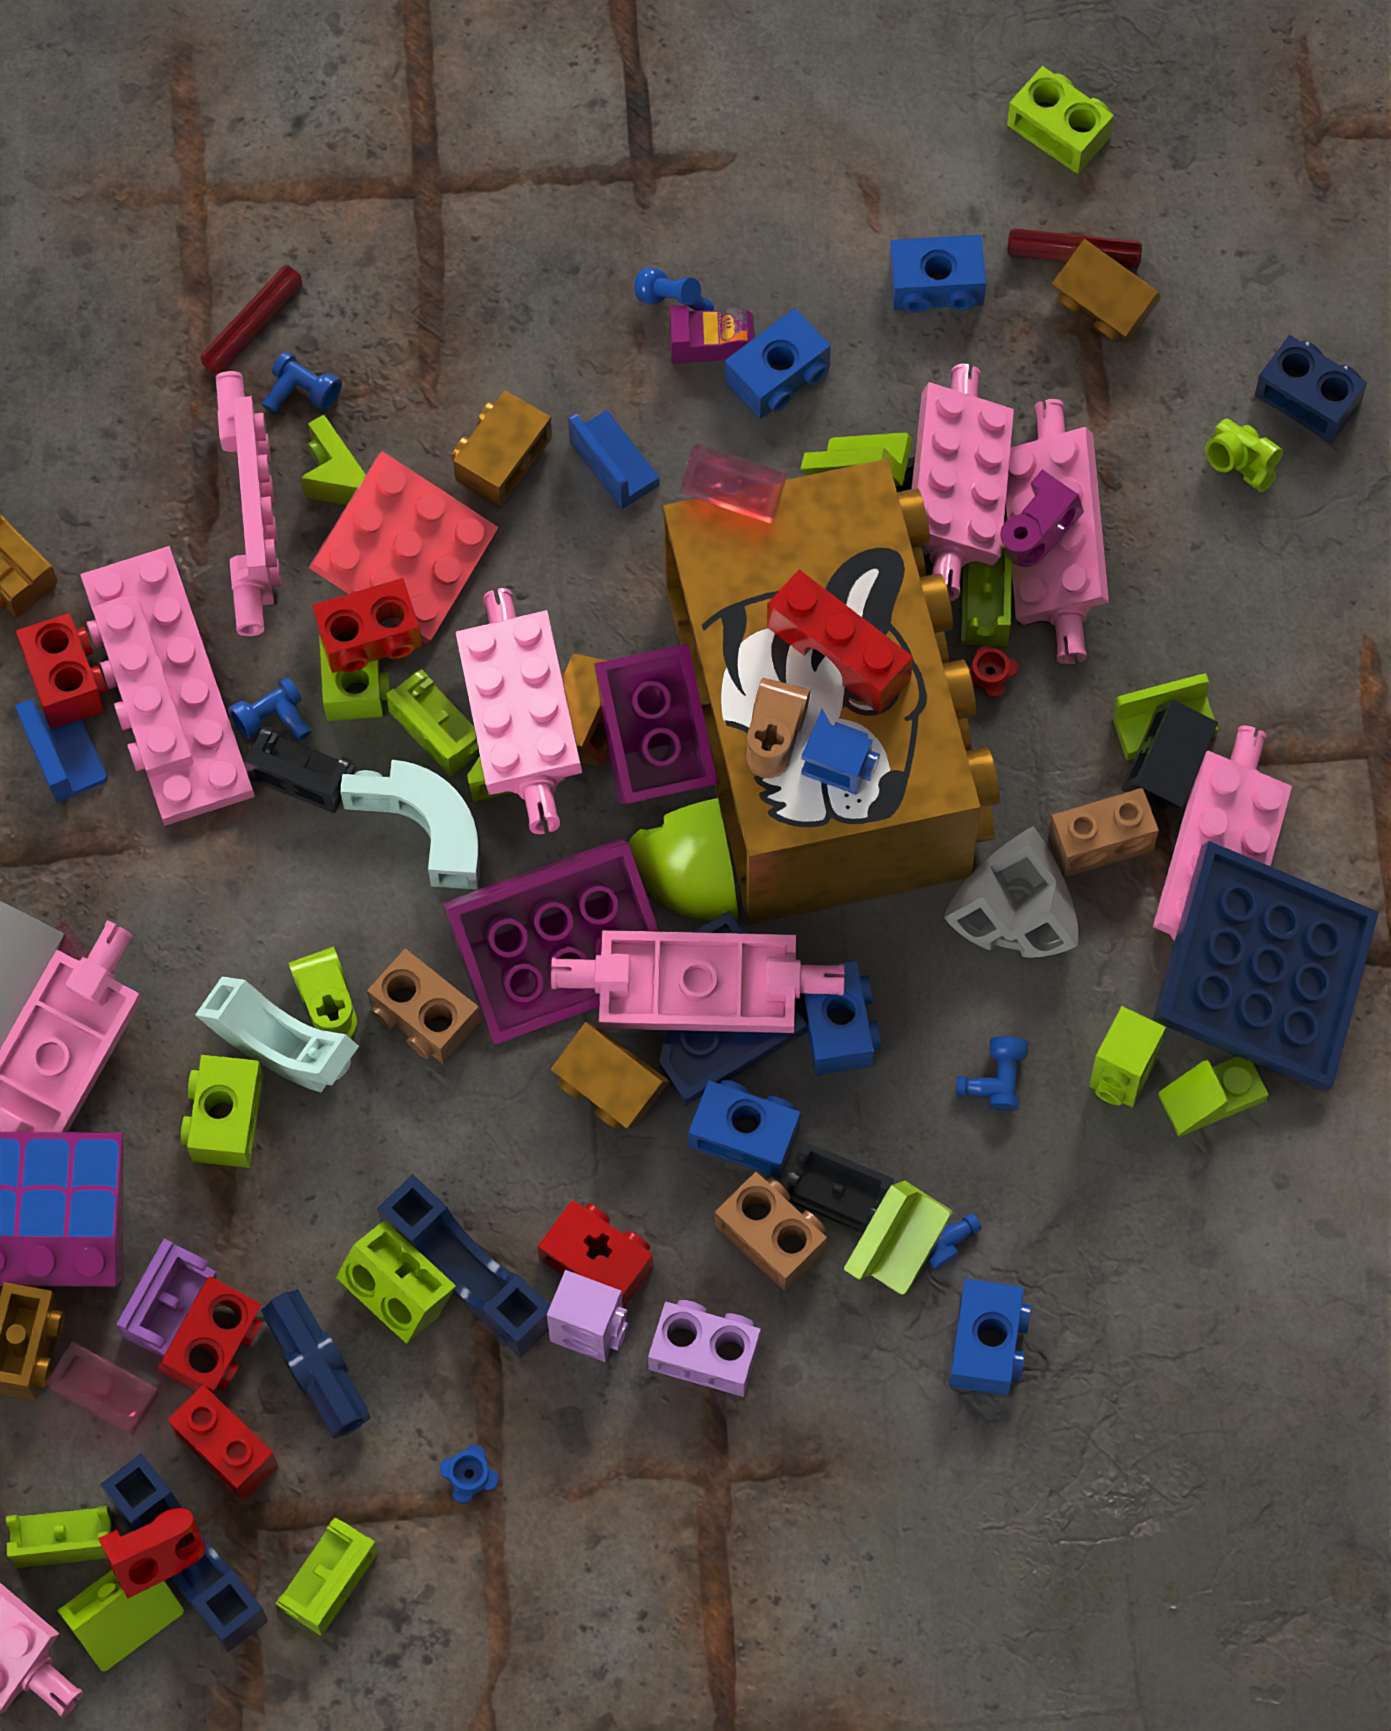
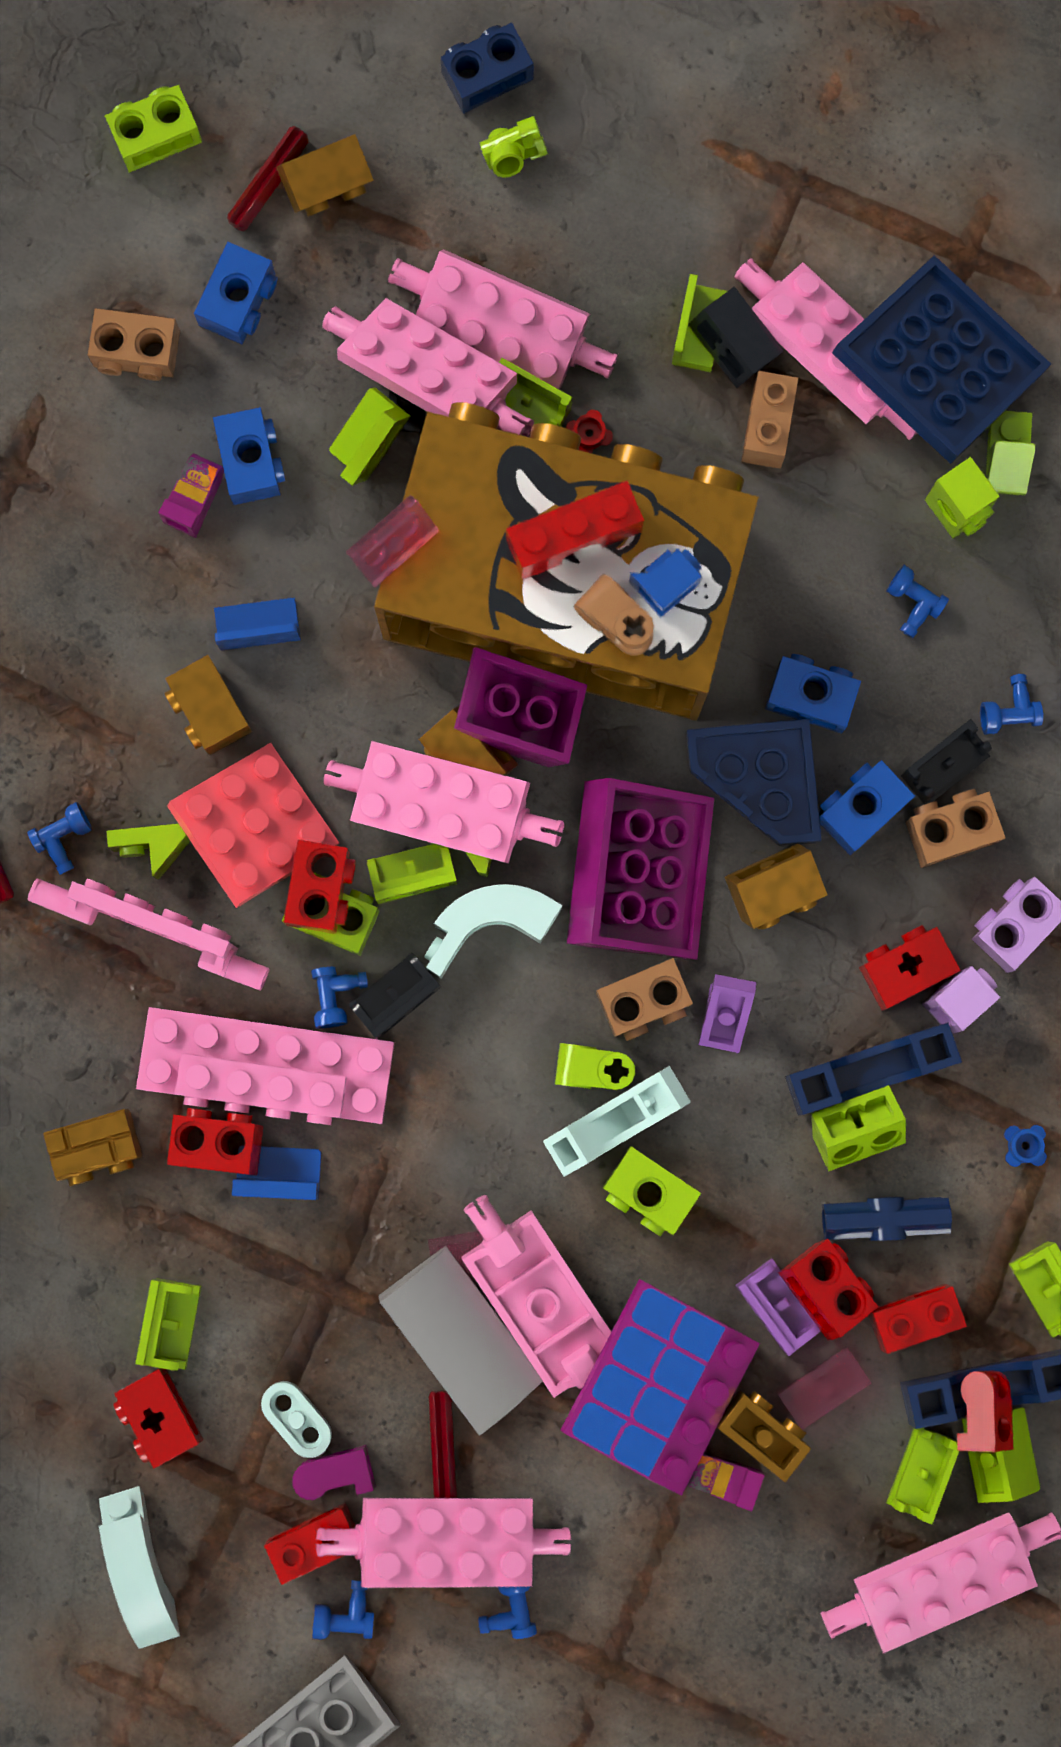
camera: 65 degrees left, 15 degrees up
(451, 1095) = (727, 1013): none -> medium lavender slope
(654, 286) = (126, 516): blue piece -> none
(688, 862) = (636, 739): lime brick -> none
(697, 981) = (739, 781): bright pink plate -> none
(839, 206) = (137, 333): none -> medium nougat brick
(899, 1237) = (1012, 738): lime panel -> none
(1017, 901) = (792, 513): light grey brick -> none
(1042, 522) = (513, 340): magenta leg -> none

